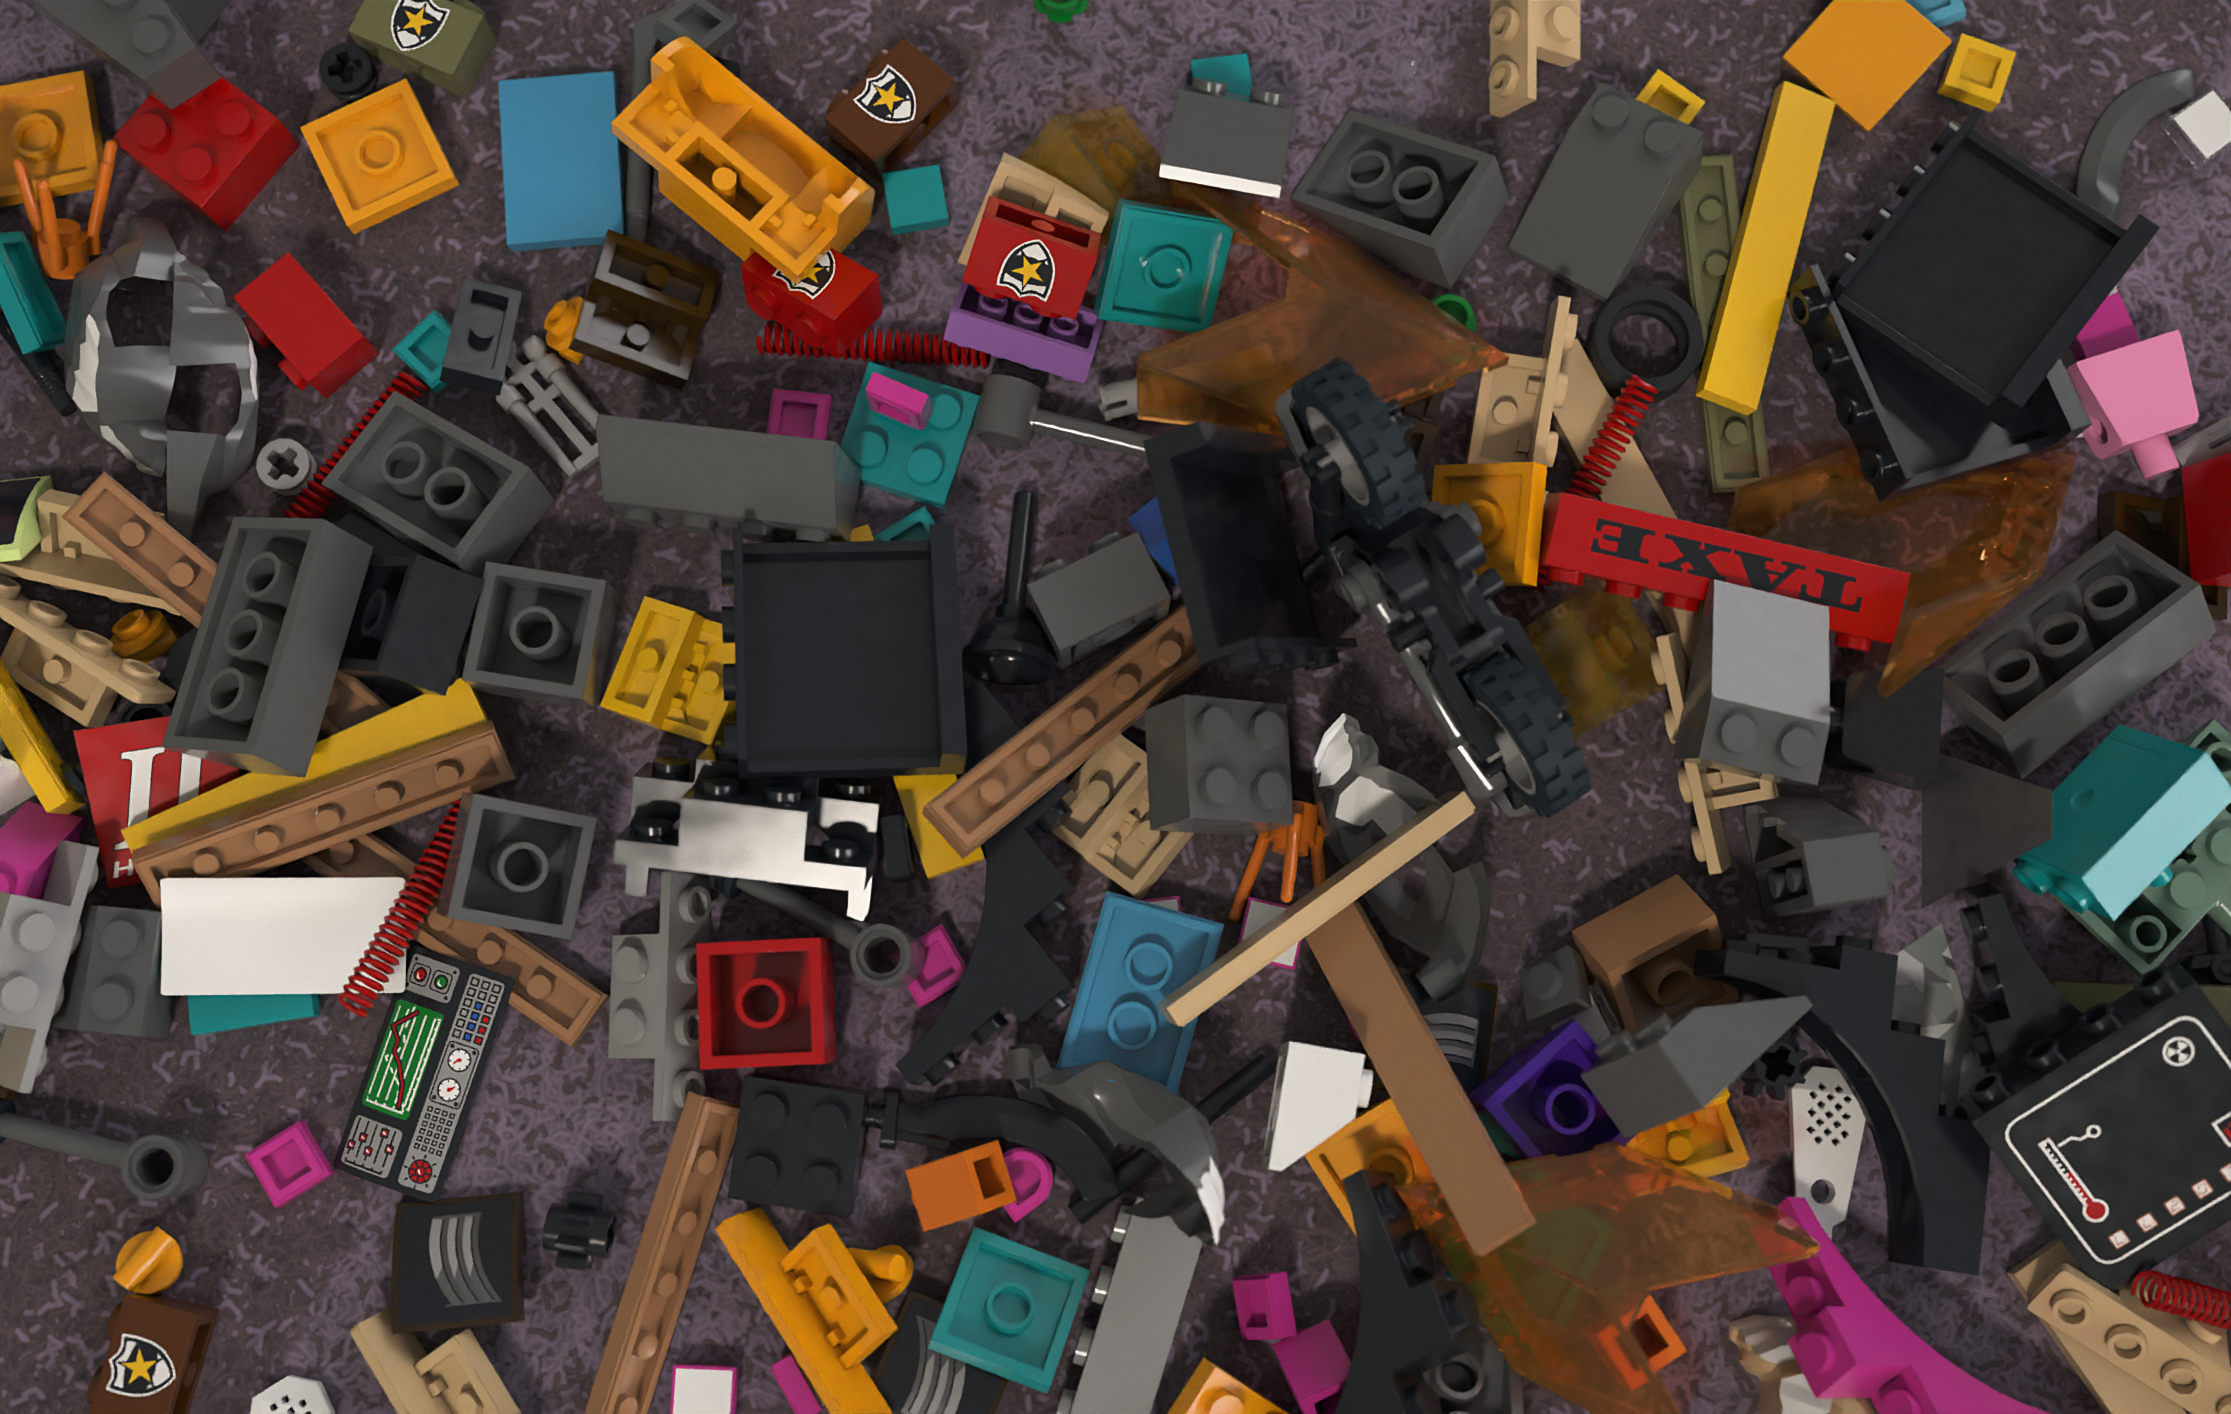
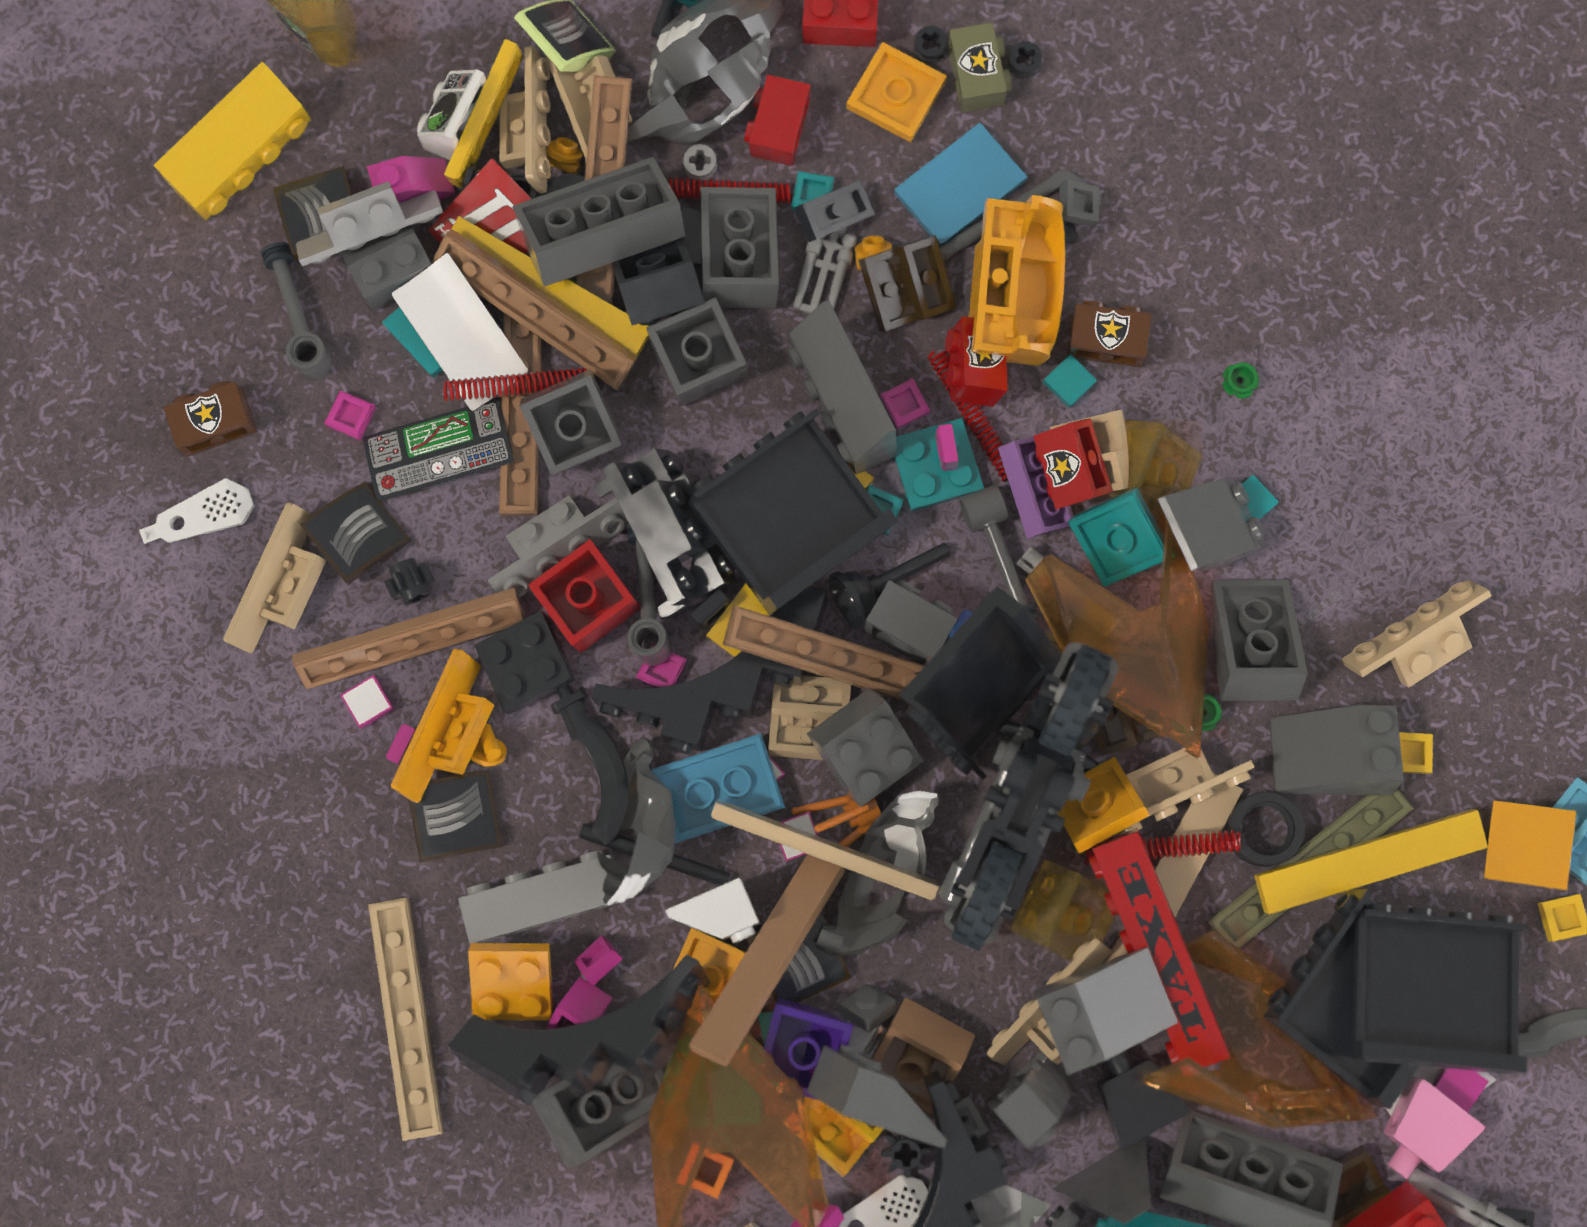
camera: 65 degrees right, 0 degrees up
(149, 1262) = (258, 381): light orange plate -> none
(673, 674) = (724, 429): yellow slope -> none
(960, 1186) = (557, 759): orange brick -> none
(1009, 1310) = (510, 827): teal plate -> none
(1030, 1179) = (580, 789): dark pink tile -> none

